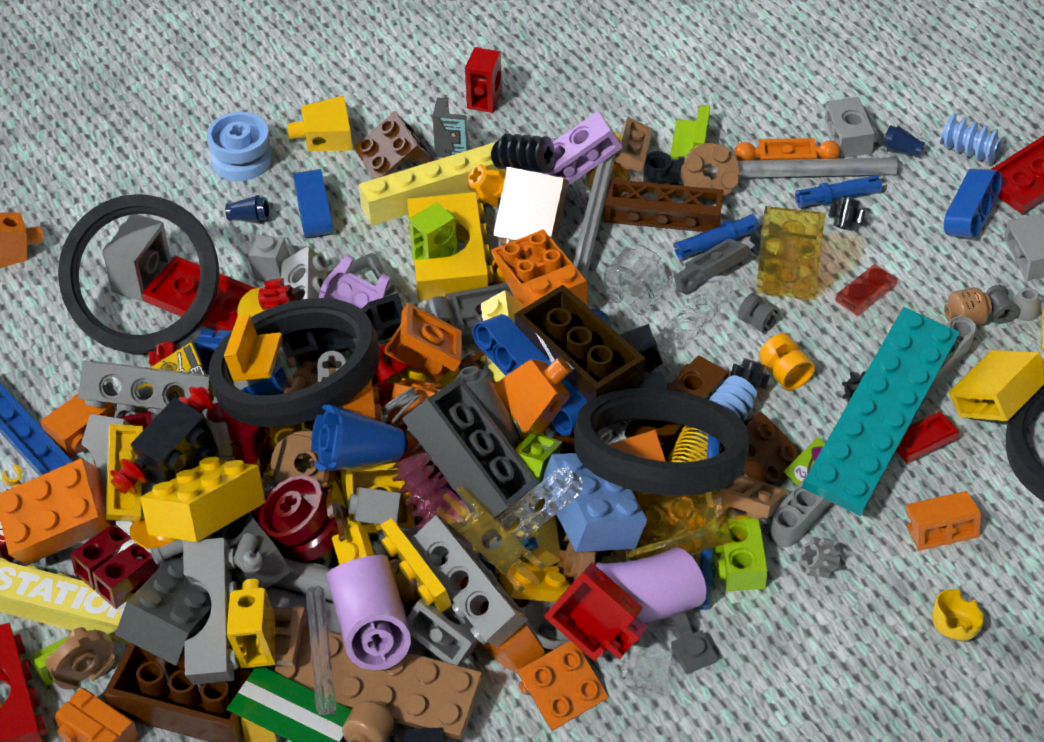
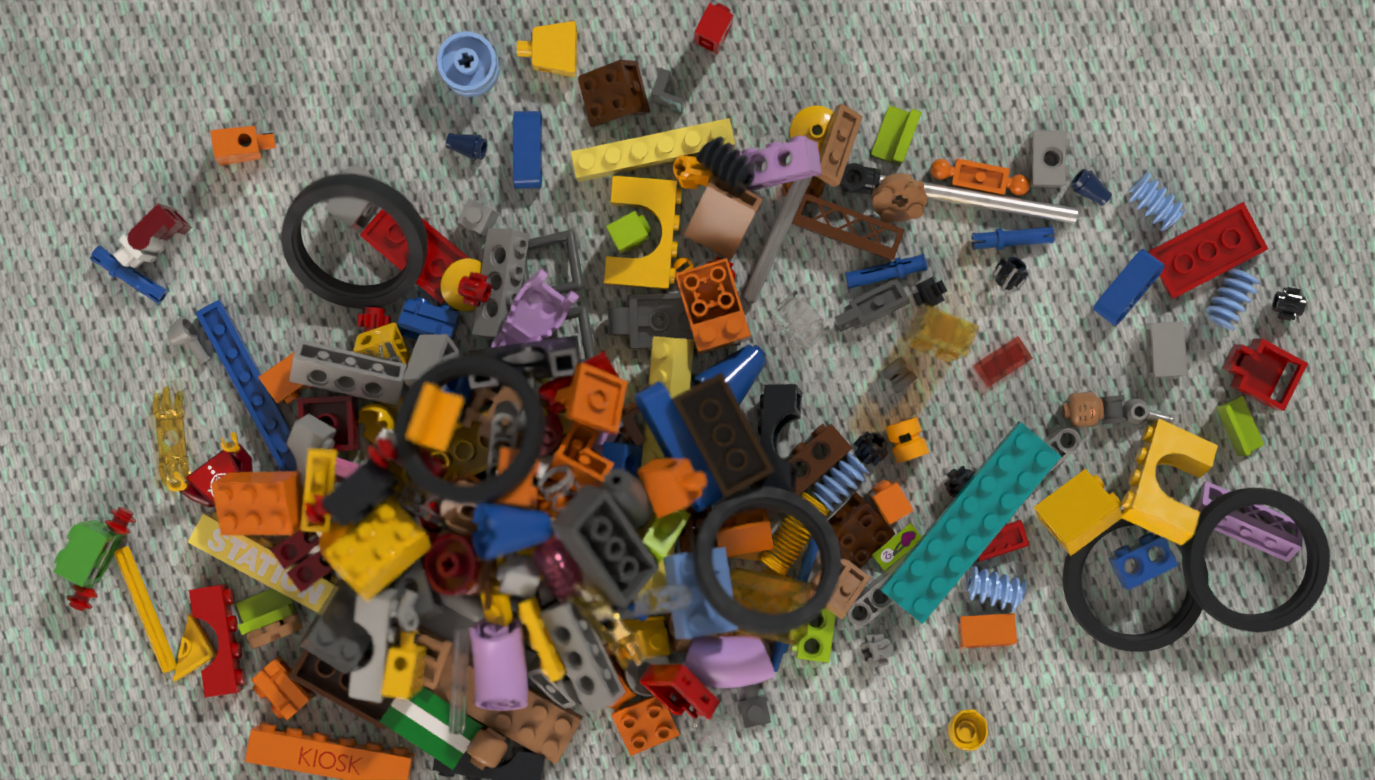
camera: 10 degrees right, 40 degrees up
(789, 406) = (890, 501): none -> orange brick
(935, 475) = (995, 588): none -> light blue piece

